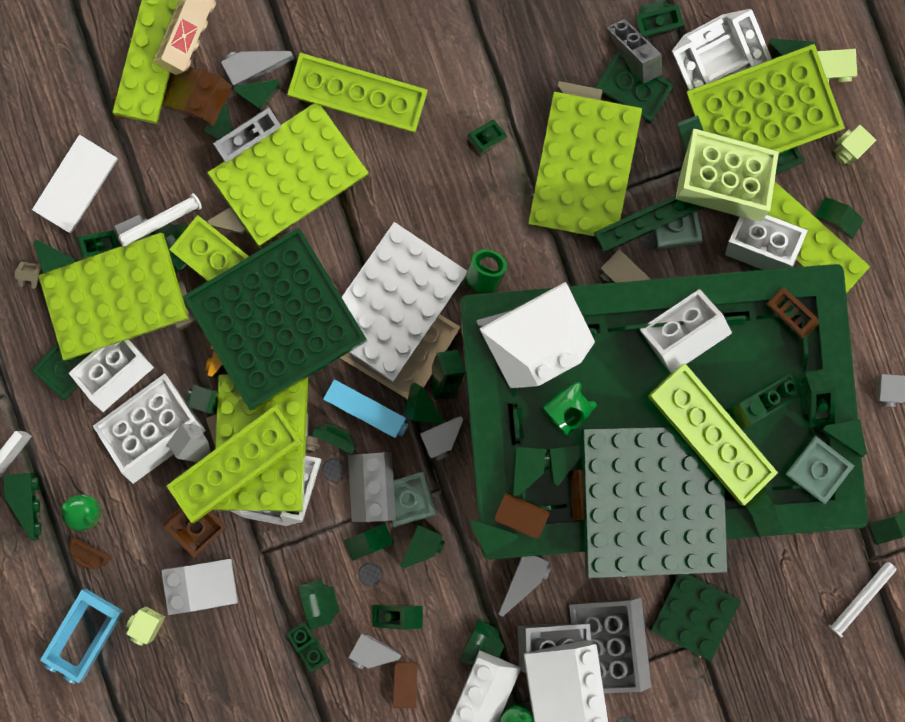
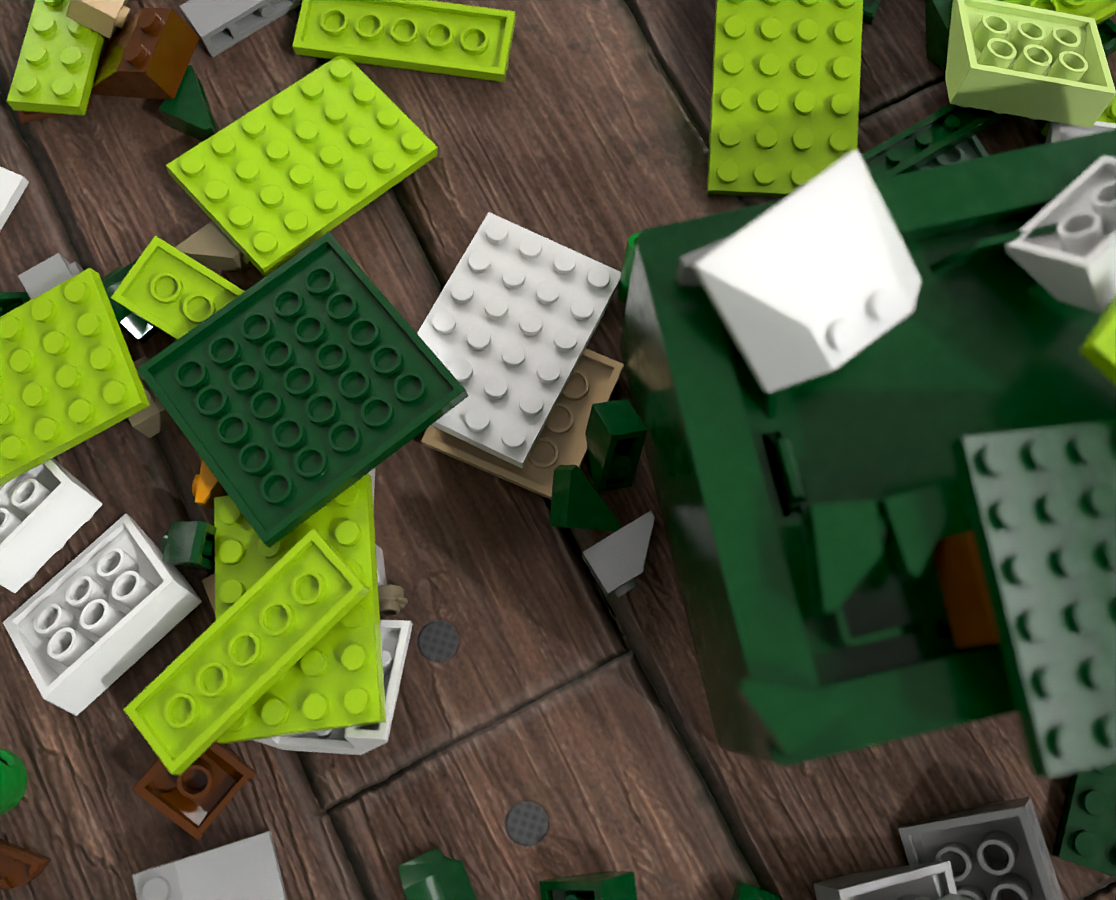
camera: 10 degrees left, 10 degrees down
(160, 220) = (93, 257): white axle -> none
(189, 443) = (164, 624): light grey slope -> none
(247, 135) = (227, 102): light grey slope -> none
(258, 93) = (246, 51): dark green slope -> none
(336, 437) = (434, 579): dark green slope -> none
(366, 409) = (480, 521): medium azure piece -> none
(369, 542) = (517, 763): dark green slope -> none
(371, 487) = (509, 660): light grey slope -> none
(412, 499) = (579, 674): sand green plate -> none
(423, 546) = (616, 758): dark green slope -> none
(486, 137) = (615, 73): dark green slope -> none
(521, 516) = (846, 656): reddish brown slope -> none
(526, 578) = (809, 800): light grey slope -> none
(569, 409) = (903, 414): green piece -> none

